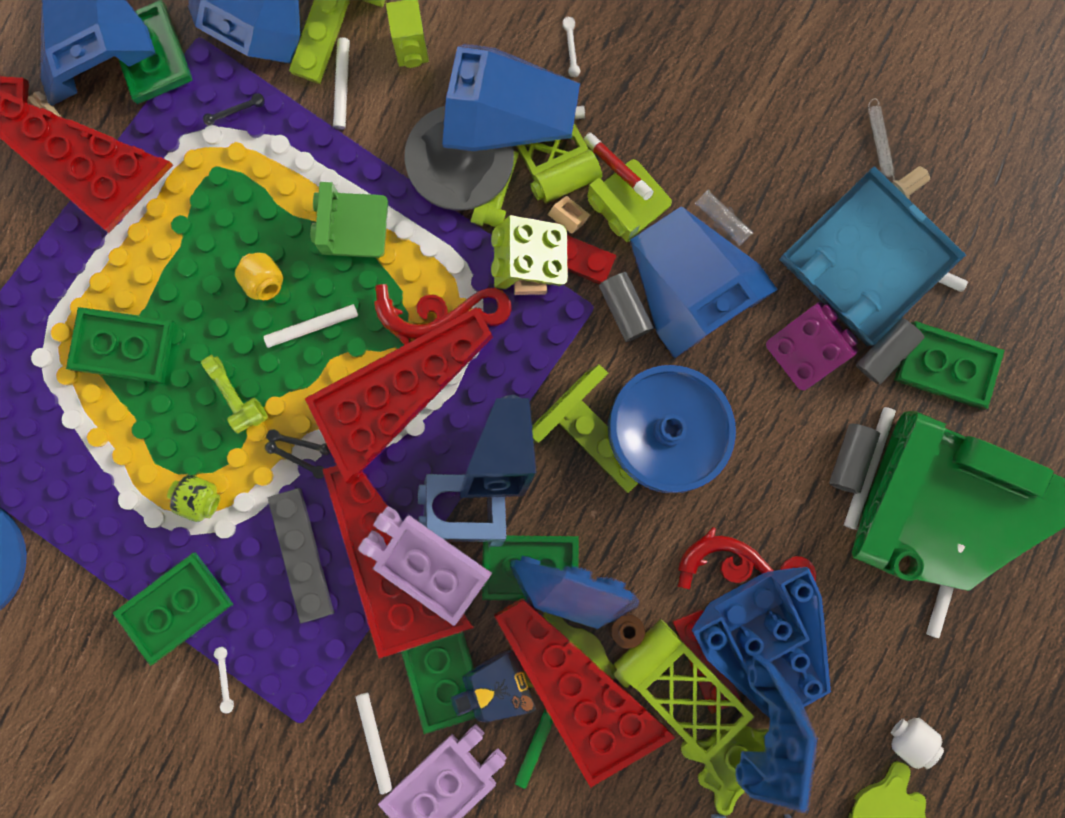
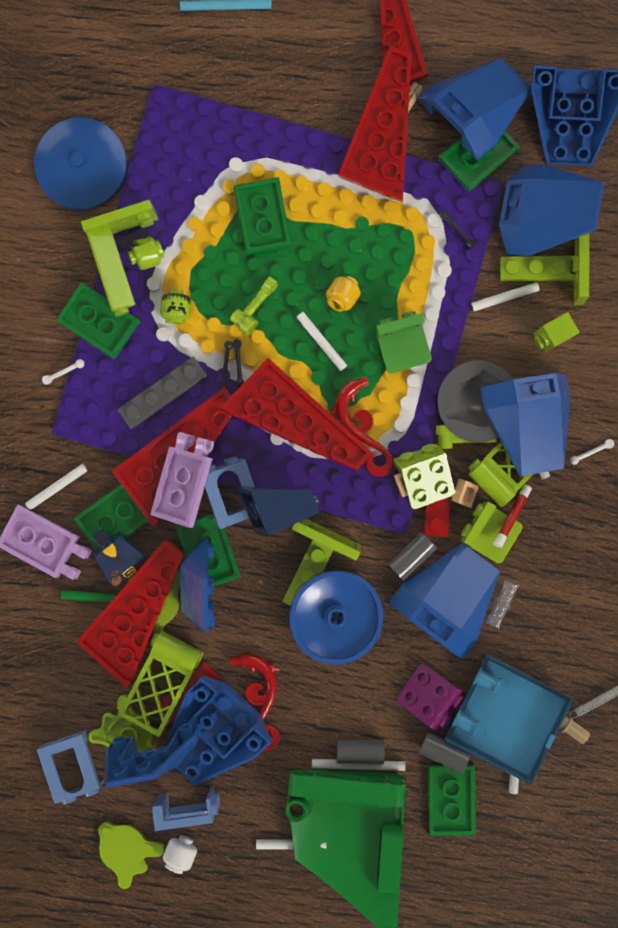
camera: 75 degrees right, 5 degrees up
(52, 561) = (109, 264): none -> lime piece
(107, 512) = (145, 253): none -> lime head
(616, 630) = (182, 637): reddish brown brick -> none
(855, 744) = (164, 814): none -> medium blue panel

